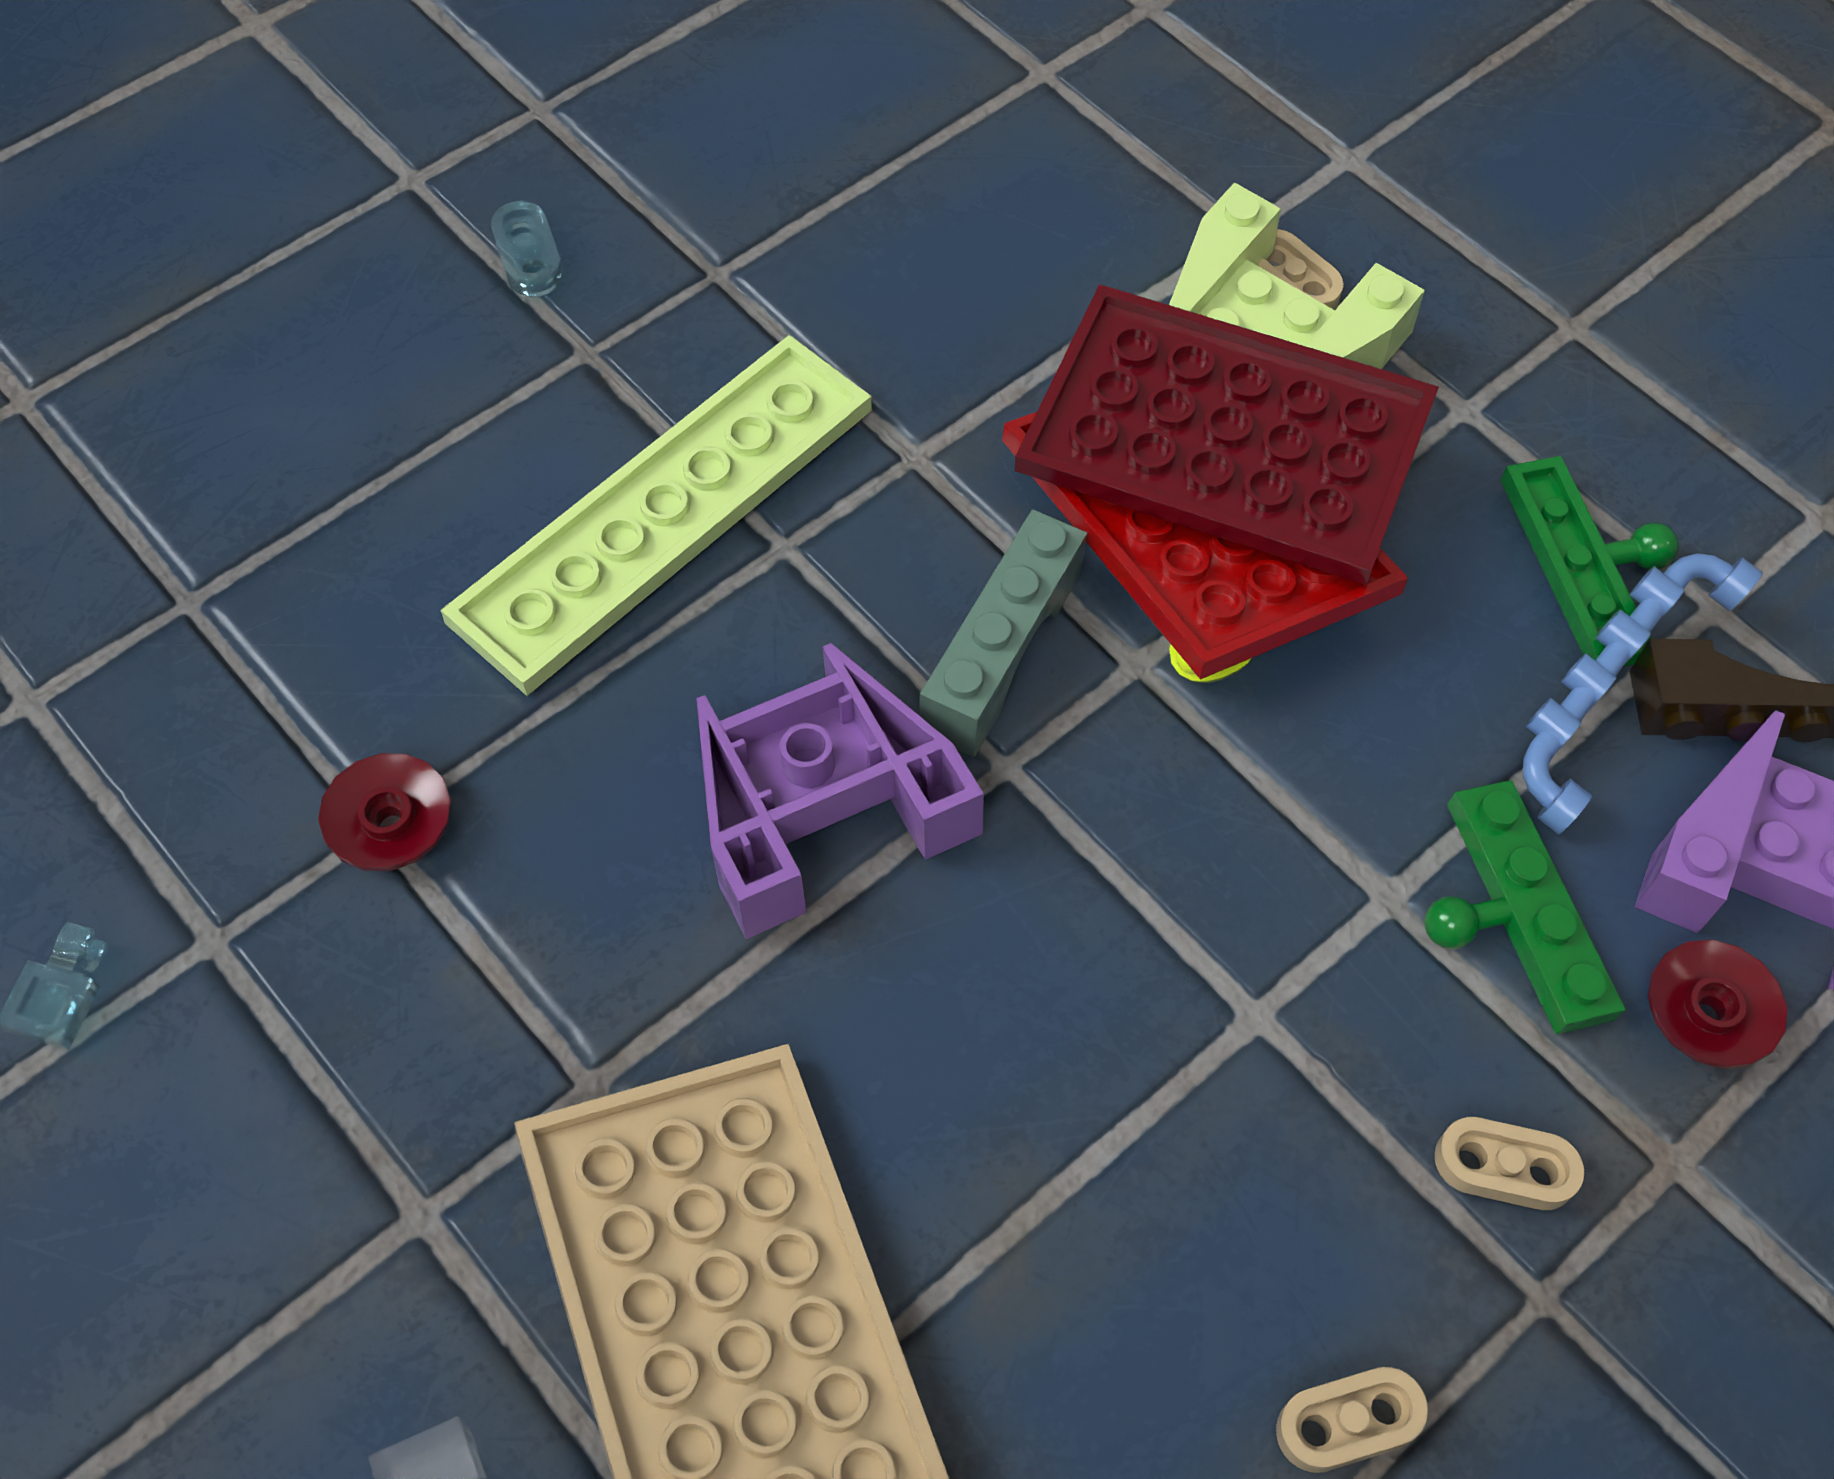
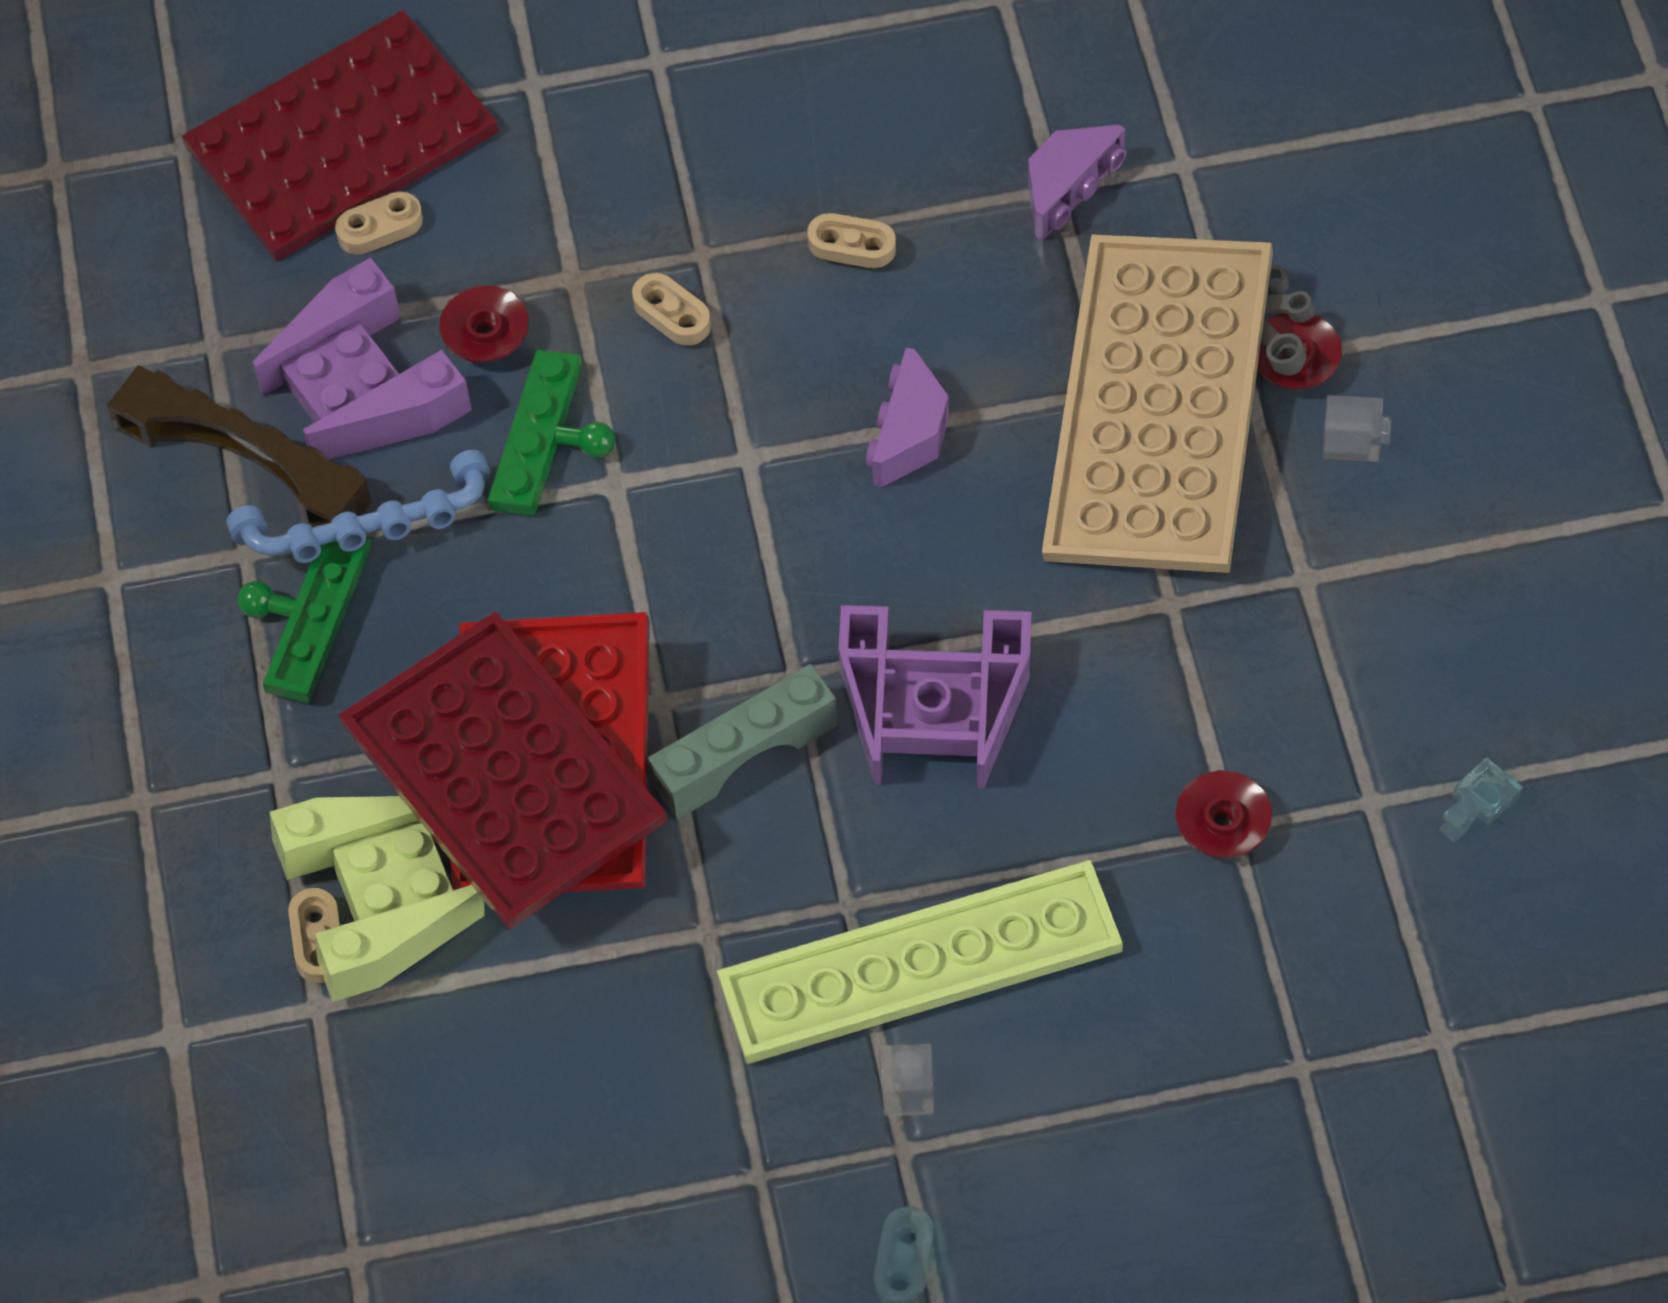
camera: 145 degrees left, 0 degrees up
(608, 381) = (907, 1079): none -> clear brick
(1078, 1157) = (910, 423): none -> medium lavender slope

